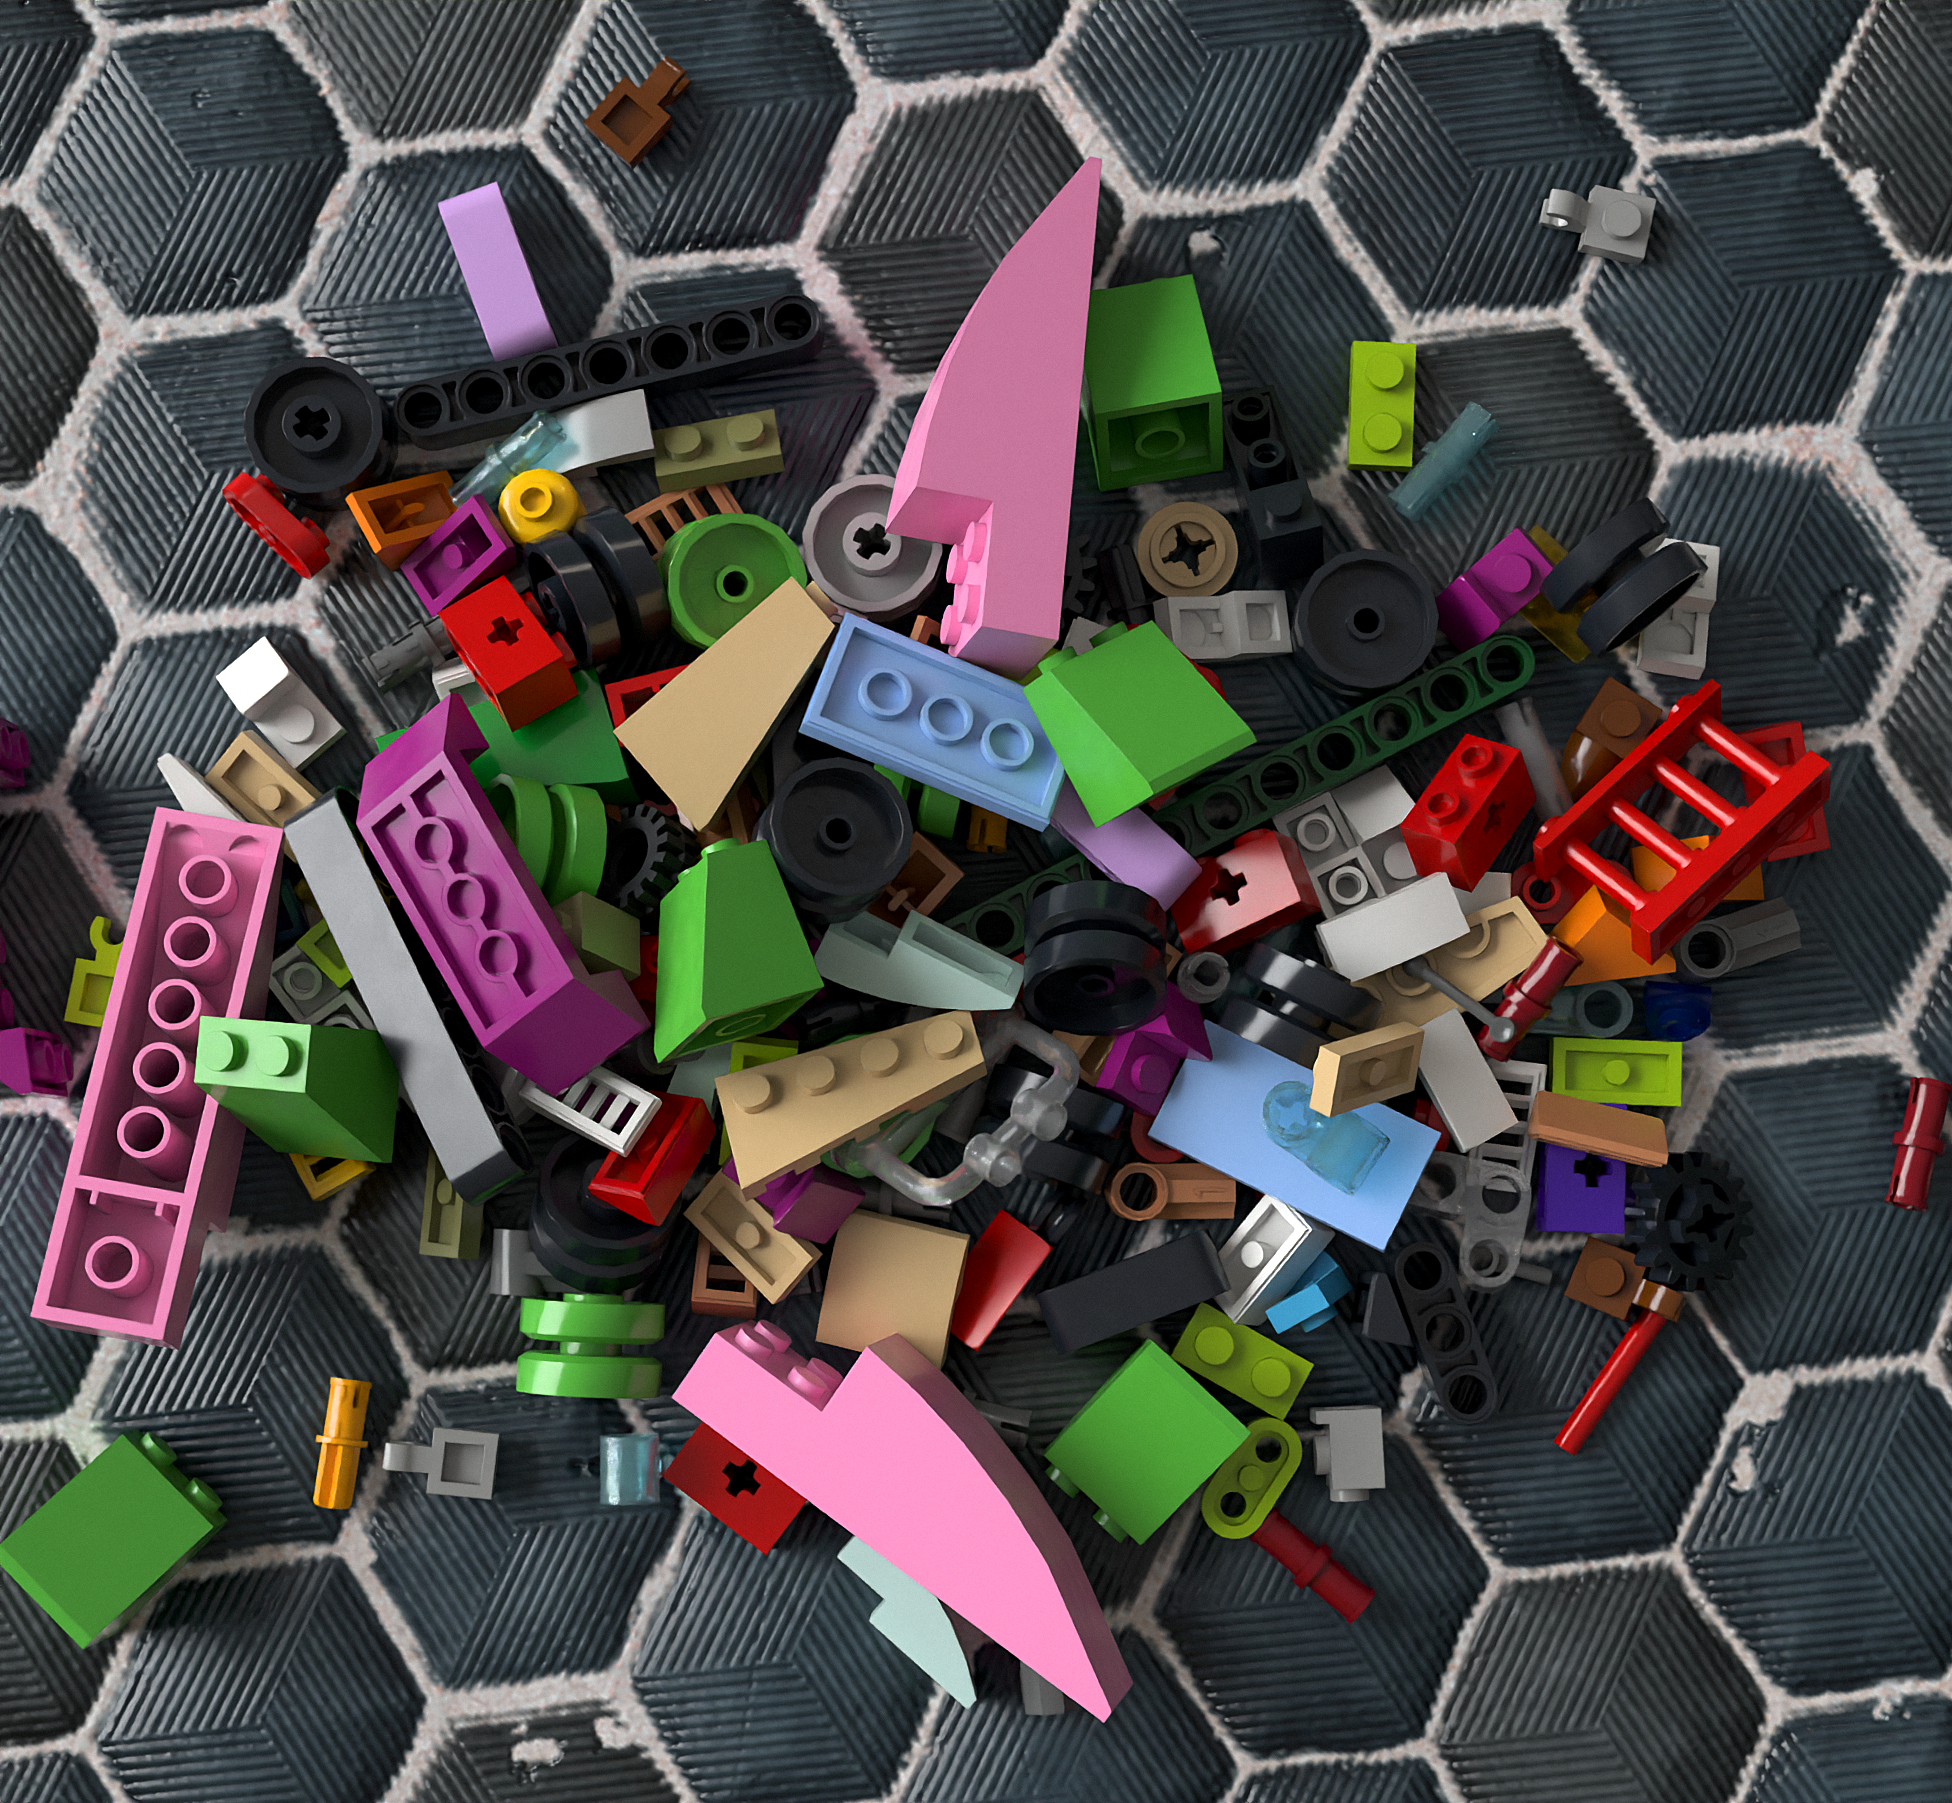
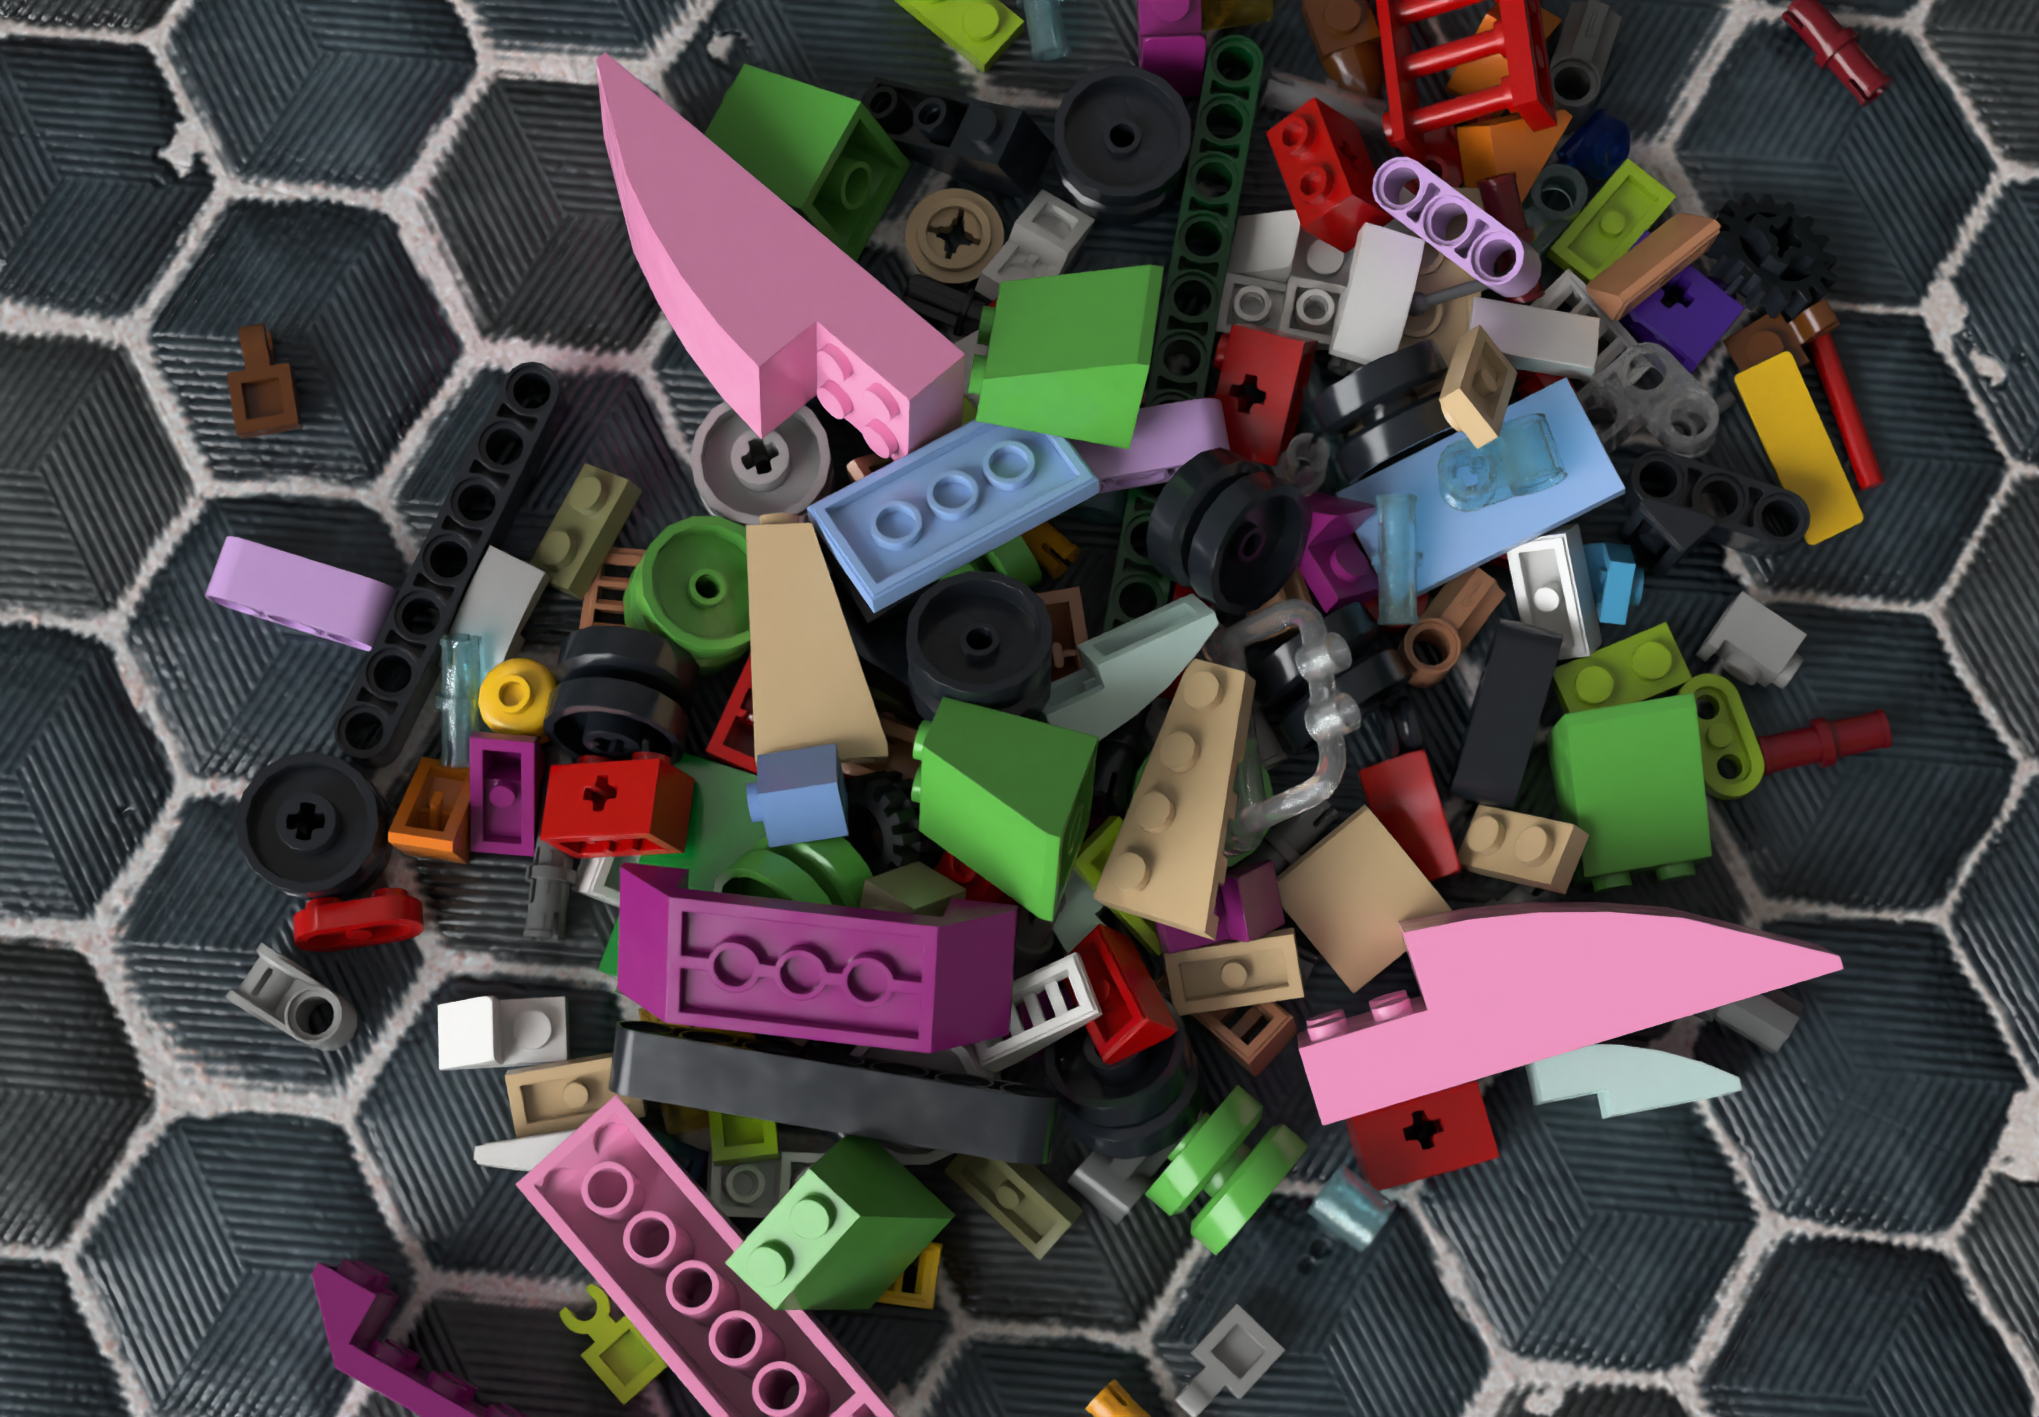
camera: 55 degrees left, 5 degrees down
(178, 513) = (285, 996): none -> light grey piece
(611, 788) = (800, 795): none -> medium blue brick
(1030, 1388) = (1522, 848): none -> tan plate
(1182, 1110) = (1397, 559): none -> clear light blue pin
(1490, 920) = (1434, 209): none -> lavender beam
(1546, 1364) = (1798, 444): none -> yellow piece

